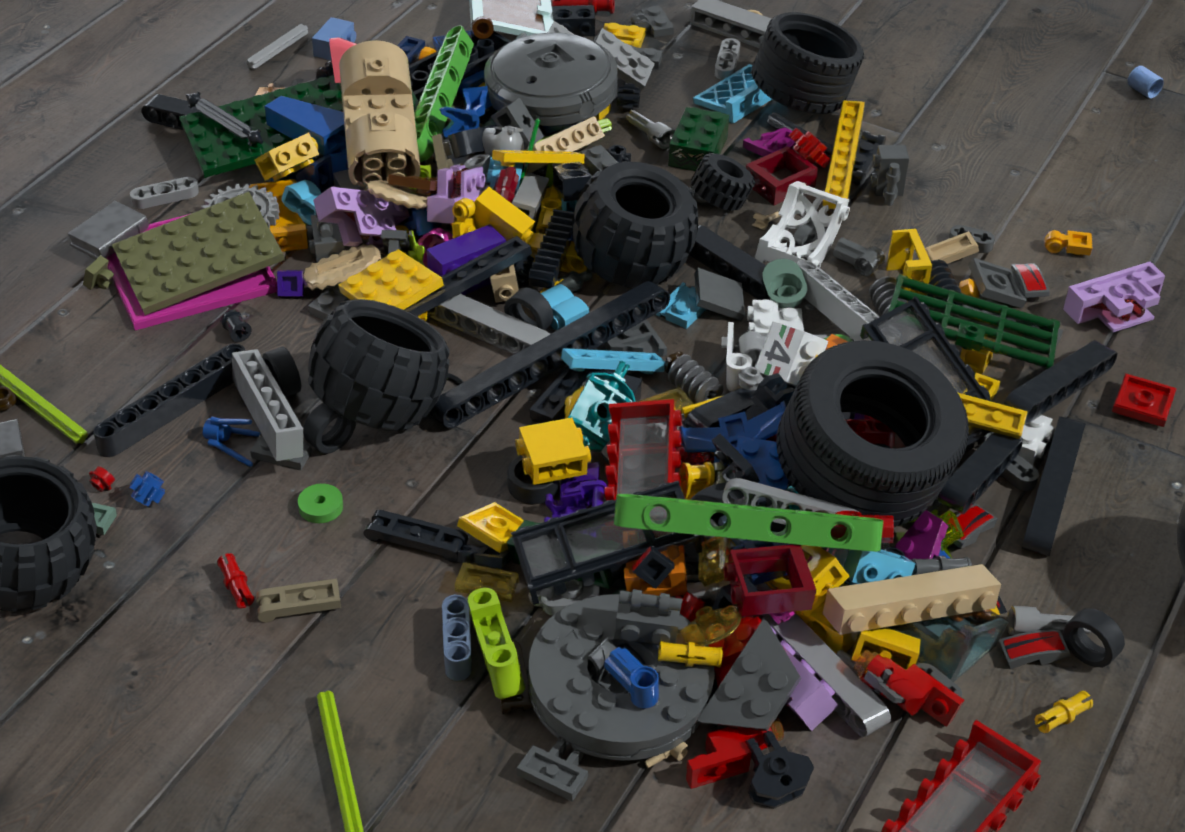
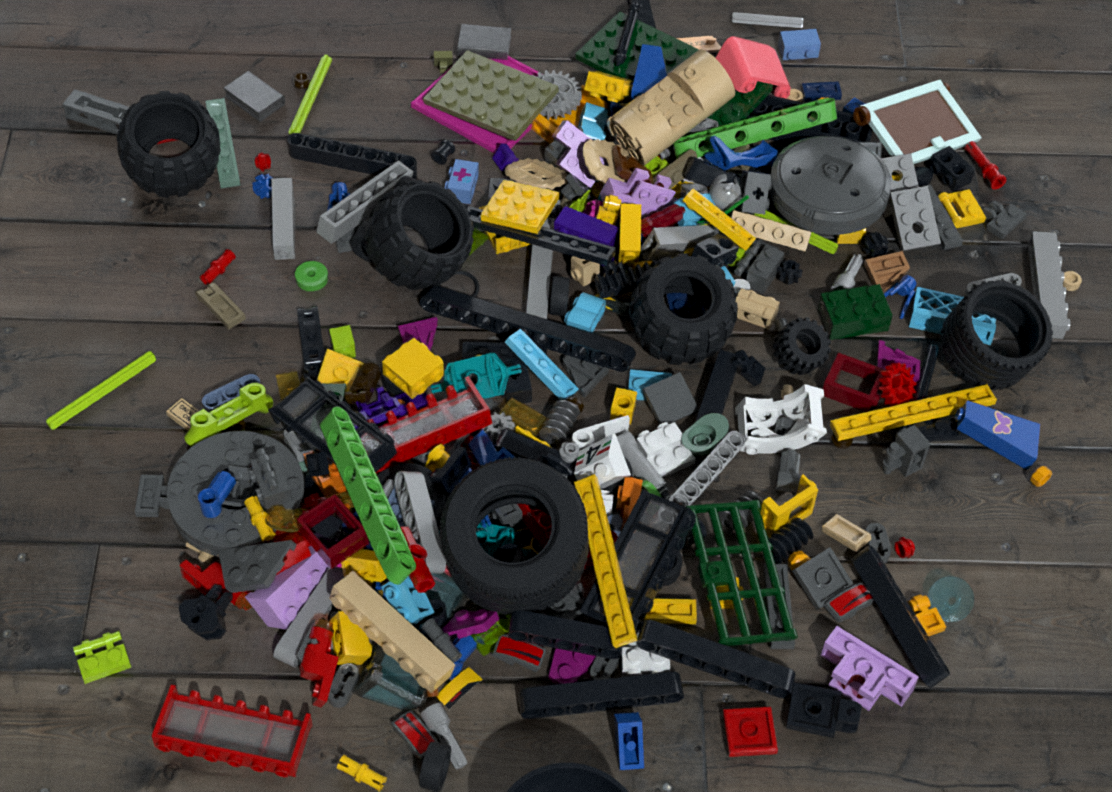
camera: 60 degrees right, 10 degrees up
(177, 190) = (542, 43): light grey beam -> none
(220, 488) = (283, 218): none -> light grey slope
(293, 325) = (463, 179): none -> medium blue brick
(449, 506) = (343, 341): none -> lime brick
(453, 693) = (181, 413): none -> tan tile
(490, 446) = (422, 331): none -> magenta wing
(534, 504) = (363, 384): none -> dark brown plate
(661, 105) = (887, 269): none -> medium nougat wing
(690, 99) = (903, 287): none -> blue plant
(702, 329) = (623, 404): none -> yellow brick
(720, 227) = (751, 368): none -> black plate
(902, 115) = (1002, 432): none -> blue slope
(957, 118) = (1040, 476): none -> light orange tile
(992, 227) = (904, 548): none -> red plate
(1006, 499) = (569, 666): none -> magenta wing
(1062, 253) = (900, 617): none -> black beam
(1065, 210) = (950, 587): none -> clear light blue dish
(1118, 482) = (629, 740): none -> blue slope
(1152, 337) = (833, 714): none -> black plate

